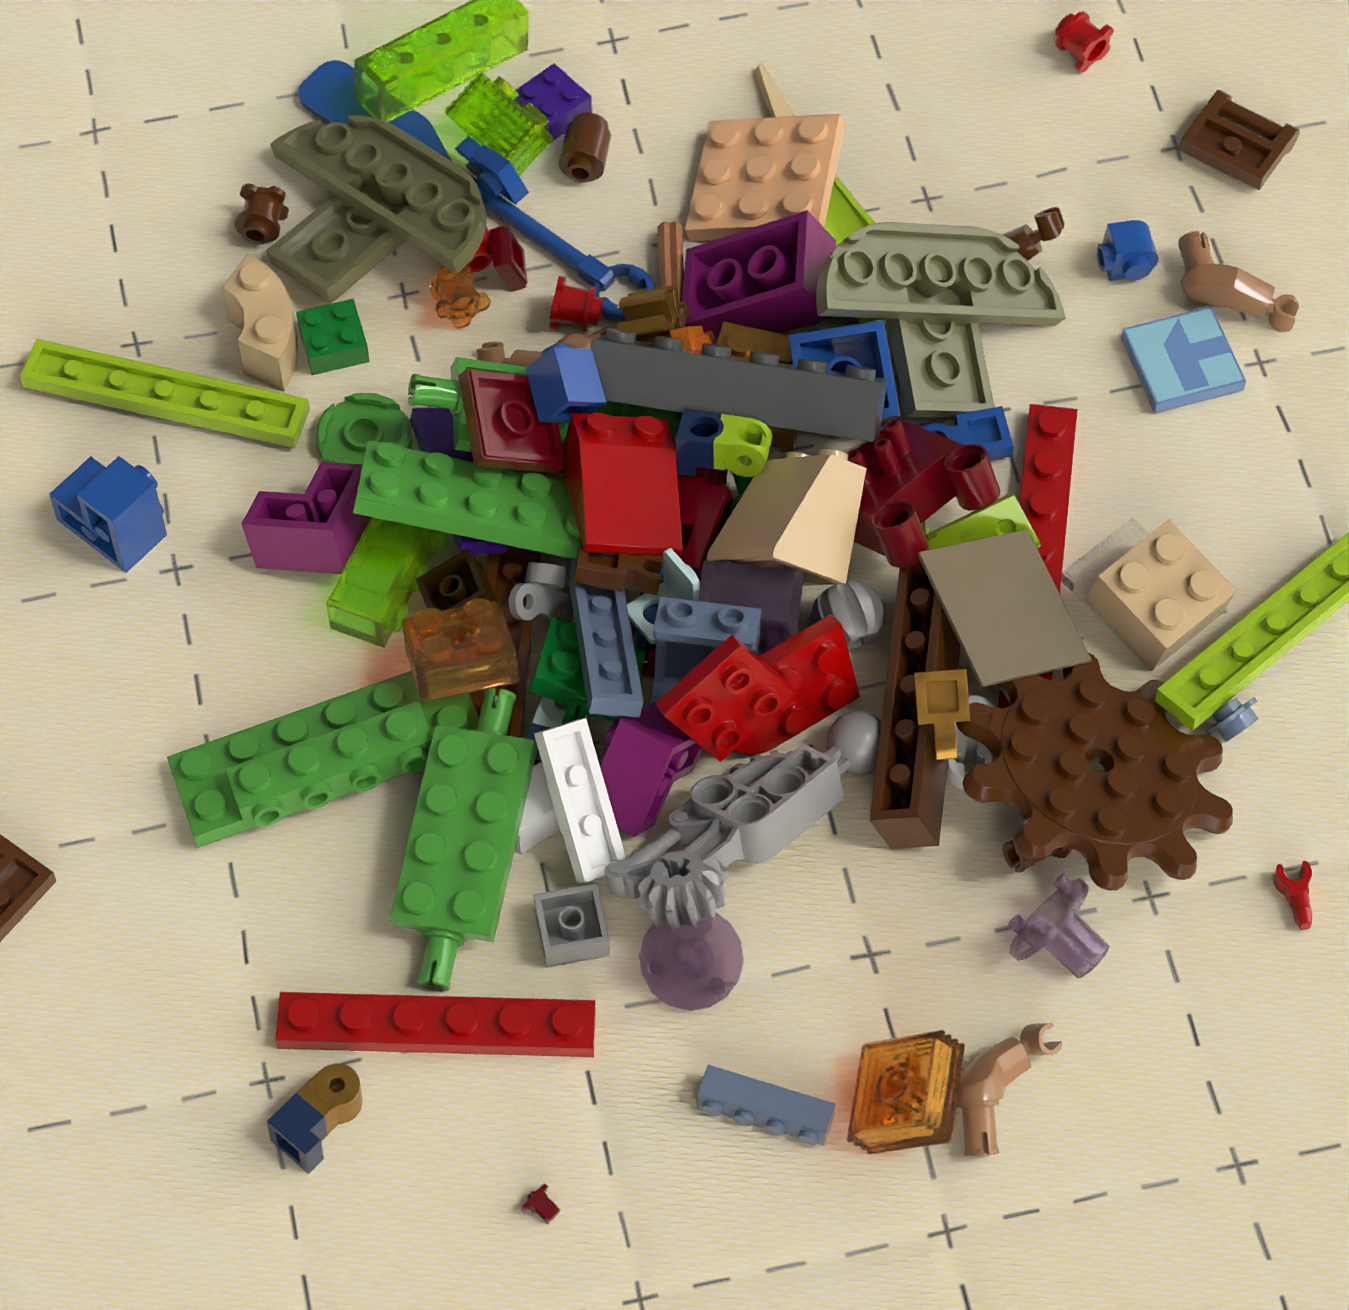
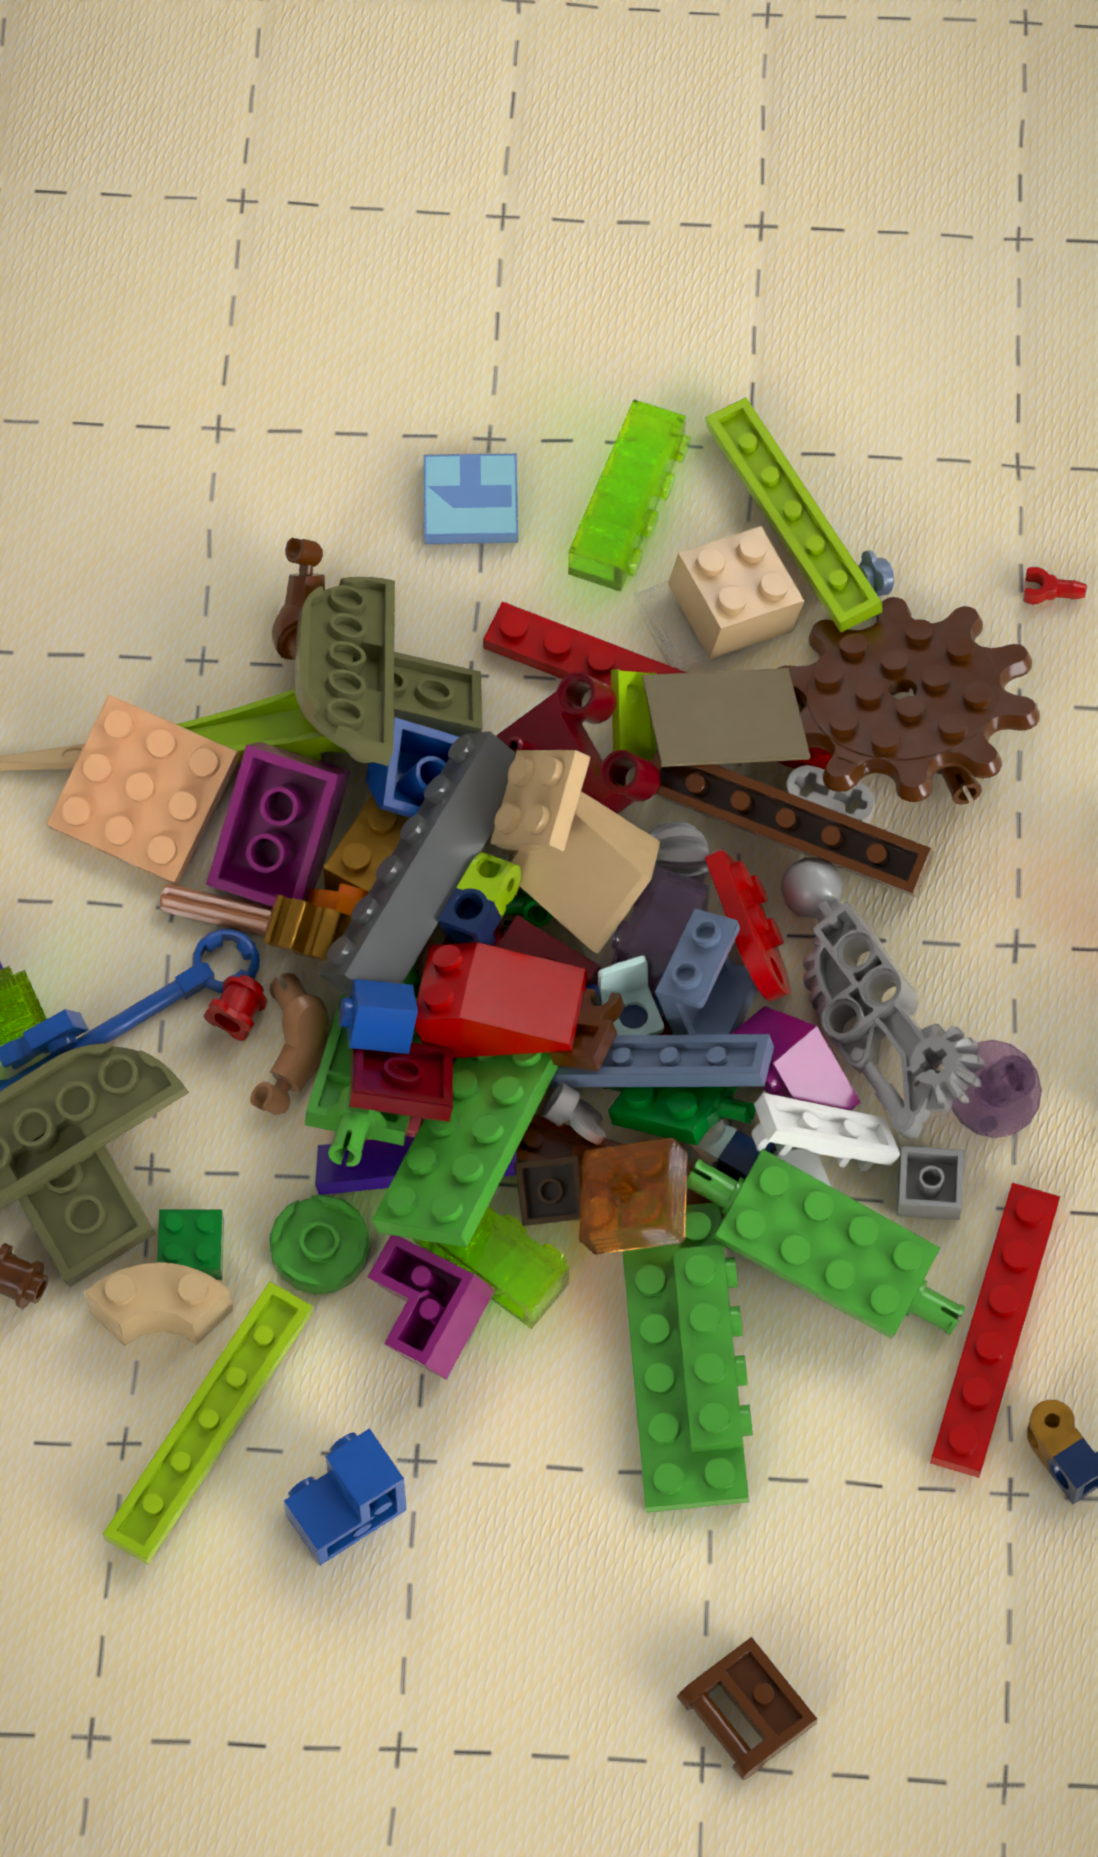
camera: 75 degrees left, 5 degrees up
(457, 296) = (187, 1113): clear orange brick -> none
(508, 258) = (164, 1051): dark red tile -> none
(585, 147) = (41, 946): reddish brown brick -> none
(725, 698) = (782, 987): red plate -> none
(806, 443) = (540, 800): none -> tan plate
(942, 702) = (831, 791): pearl gold plate -> none
(982, 428) = (505, 693): blue plate -> none
(1060, 930) = (1047, 779): piece -> none
(1083, 39) = (71, 463): red brick -> none
(1127, 251) = (339, 504): blue plate -> none
(1230, 286) = (409, 437): medium nougat arm -> none
(1233, 147) = (244, 380): reddish brown plate -> none
(1238, 482) = (627, 496): none -> clear neon green brick

